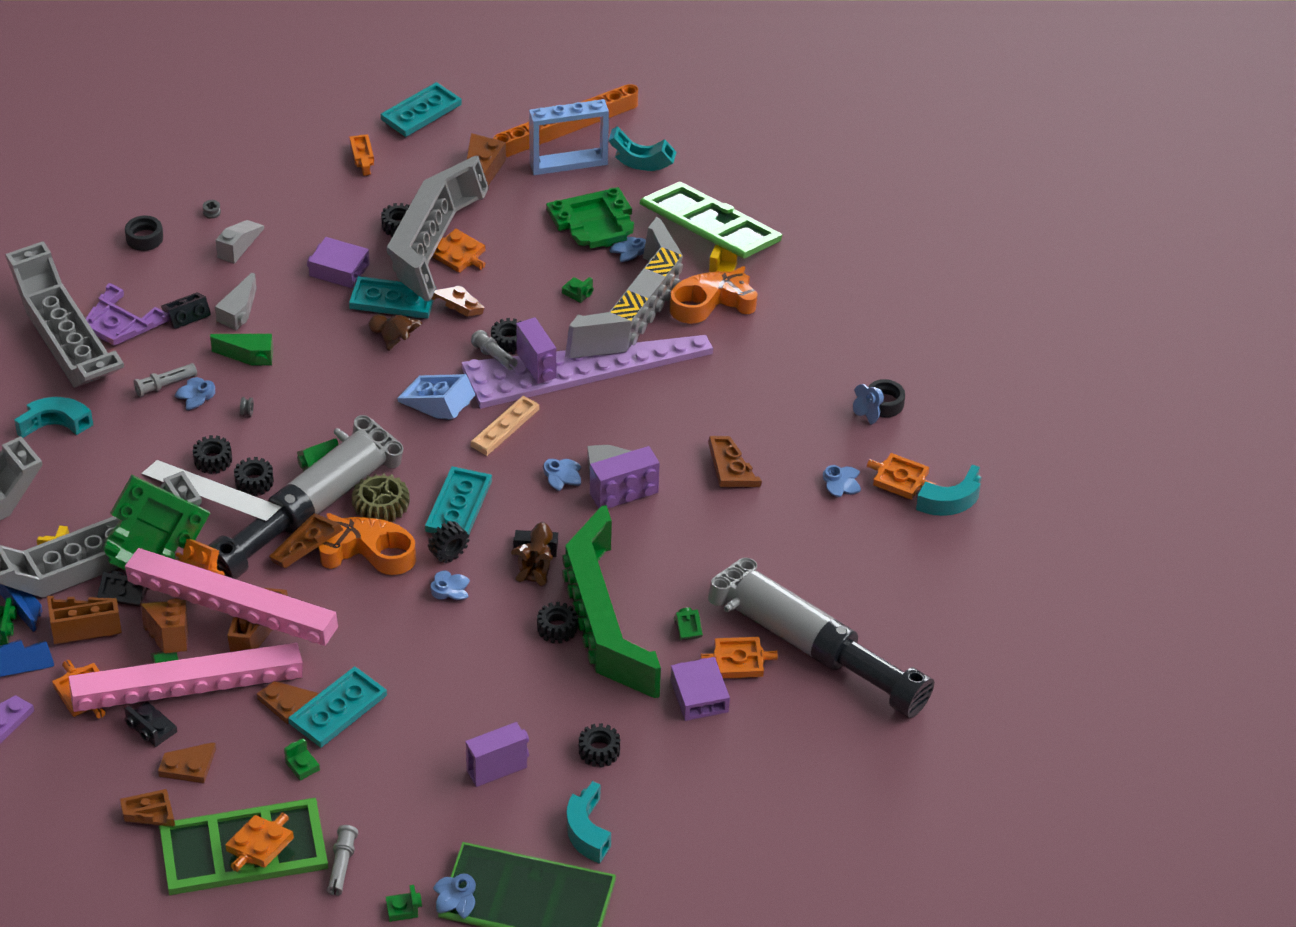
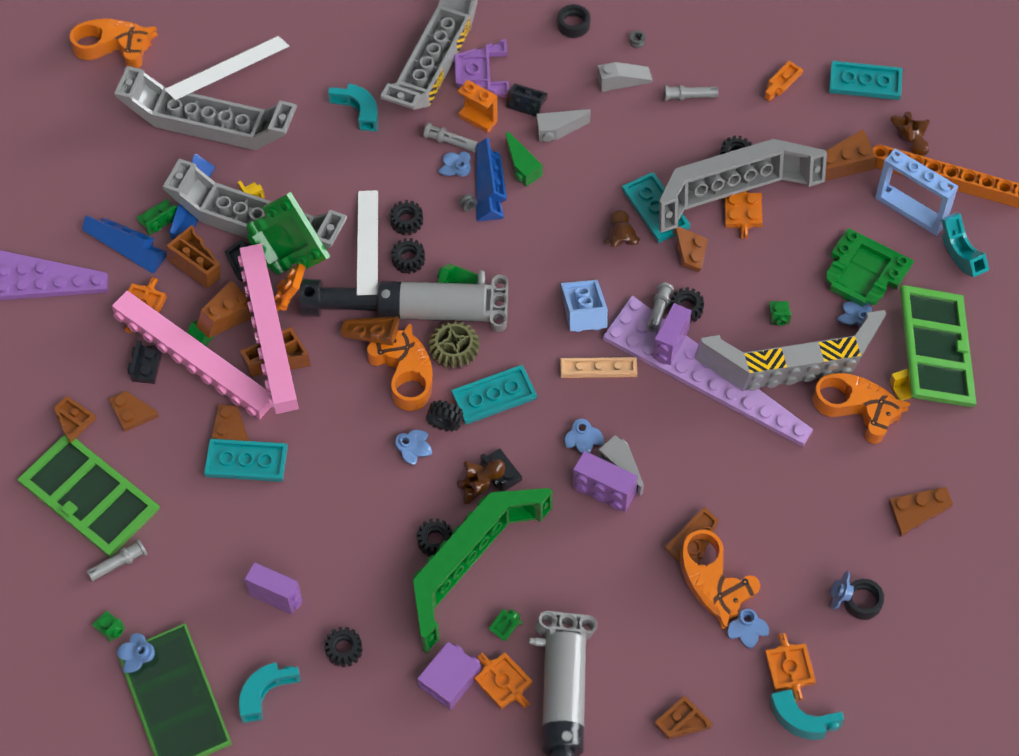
camera: 55 degrees right, 15 degrees up
(161, 335) = (479, 106): none -> orange panel
(241, 382) = (489, 183): none -> blue wedge
(259, 841) = (89, 501): orange plate -> none
(300, 214) = (689, 92): none -> light grey pin
(300, 759) = (183, 473): green bracket -> none
(338, 262) = (656, 149): medium lavender brick -> none
(502, 113) = (912, 132): none -> reddish brown animal
(779, 474) = (713, 591): none -> orange animal
(837, 322) = (919, 507): none -> dark orange wing
(884, 566) = (682, 720): none -> dark orange wing

